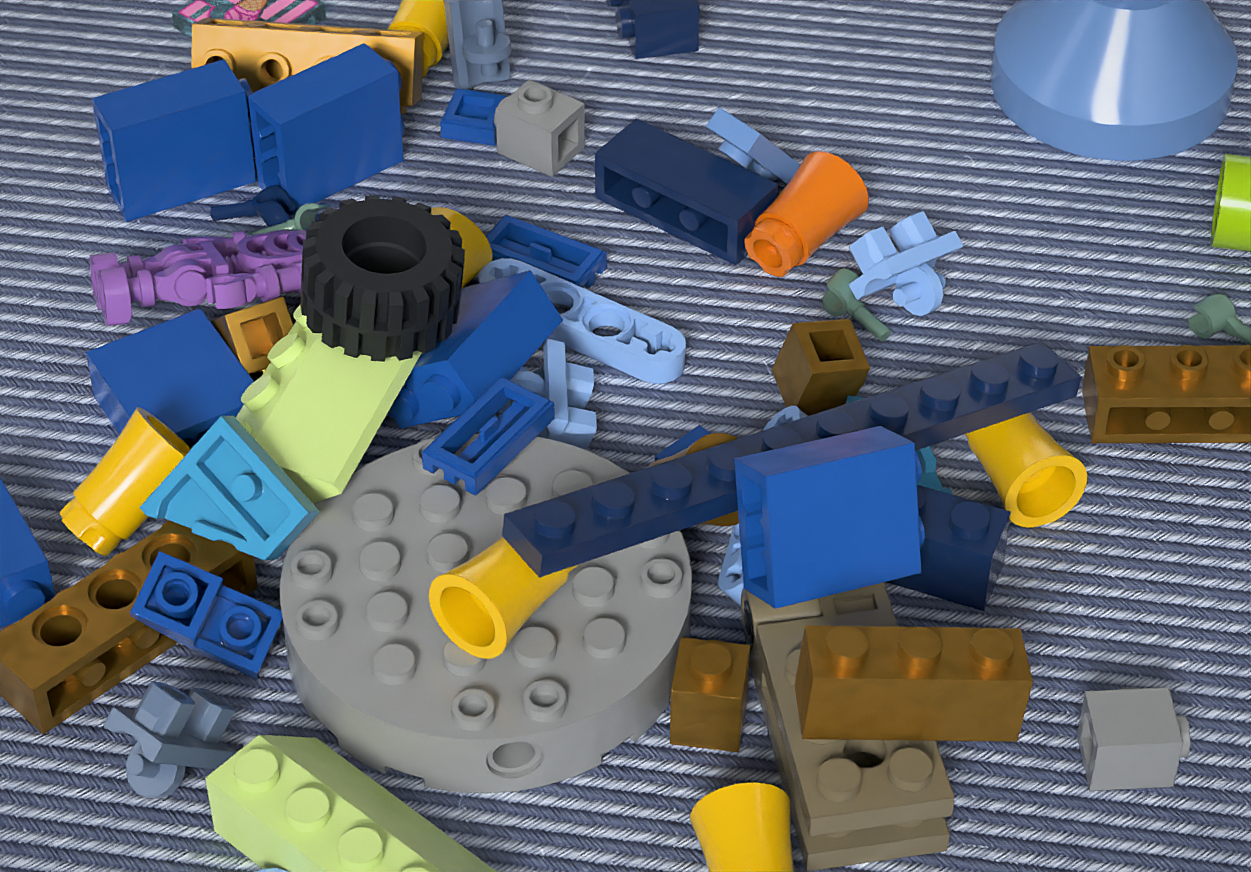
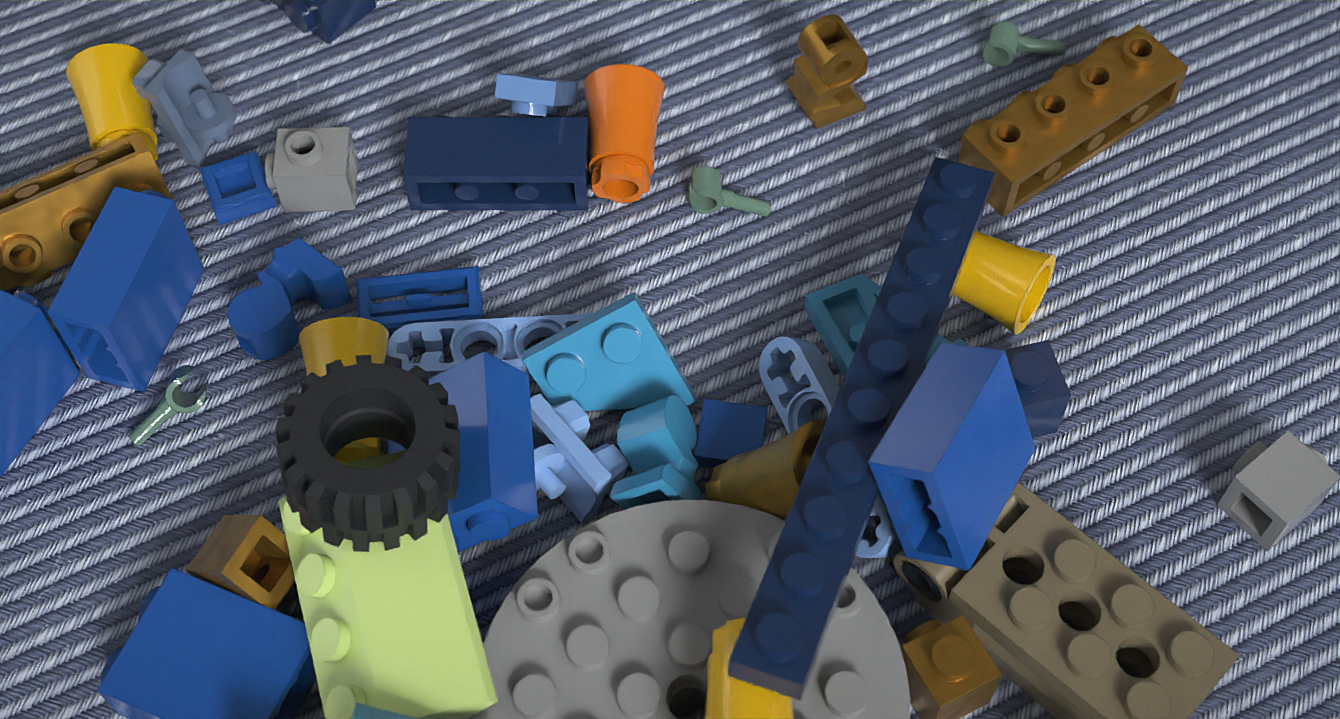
camera: 35 degrees left, 15 degrees up
(200, 269) = (196, 466): medium lavender piece -> none
(270, 204) = (122, 398): dark blue hand -> none
(455, 186) = (265, 315): none -> blue leg
(498, 438) = (580, 604): blue tile -> none
(625, 429) = (658, 449): none -> dark azure leg
(644, 358) = (608, 361): none -> dark azure wing
(820, 365) = (770, 284): pearl gold brick -> none
(910, 270) = (745, 133): light blue hips -> none
(912, 683) = (1154, 581): pearl gold brick -> none
(1015, 261) = (827, 71): none -> pearl gold leg

